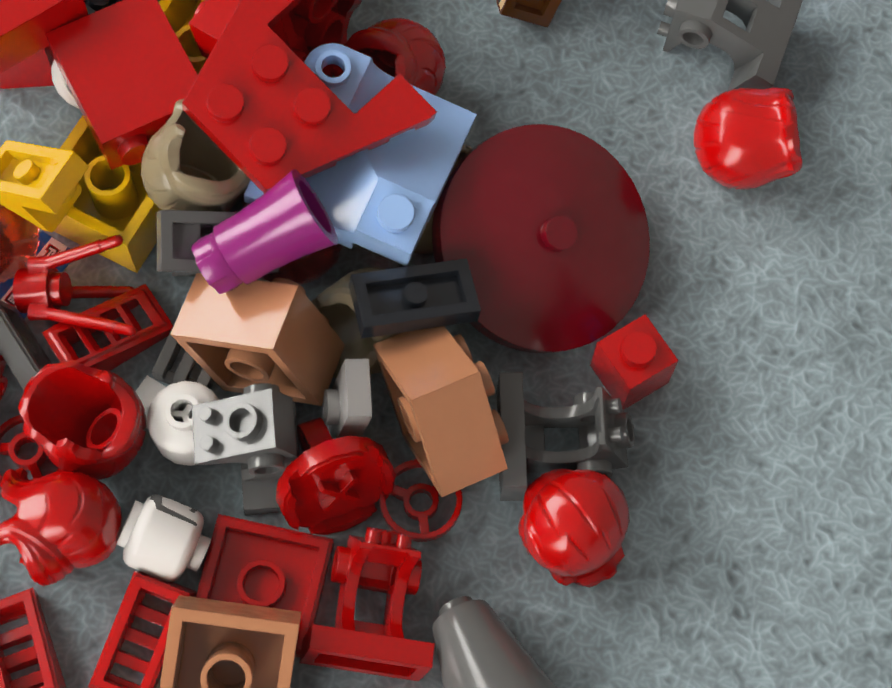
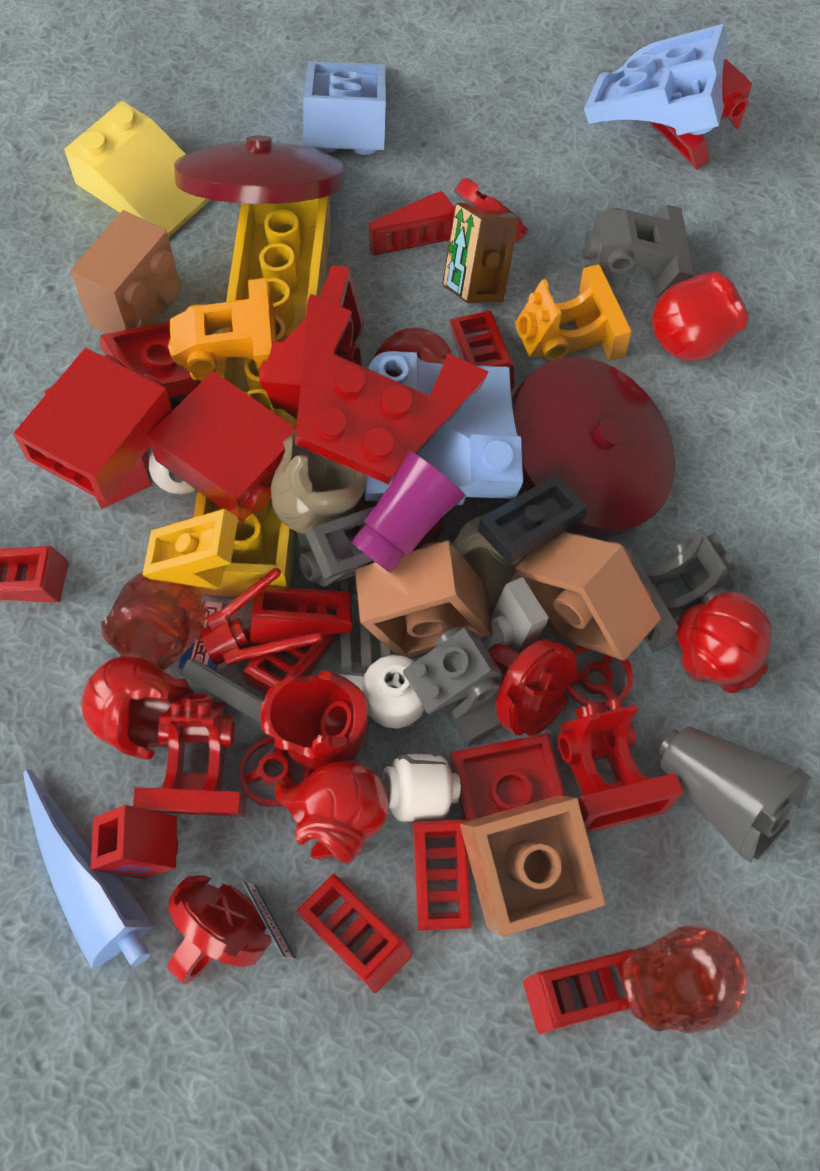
camera: 20 degrees left, 5 degrees down
(98, 289) = (290, 613): none -> red slope
(491, 107) = (496, 347): none -> red slope
(633, 361) = (701, 504): red brick -> none
(638, 81) = (593, 312): none -> light orange tile

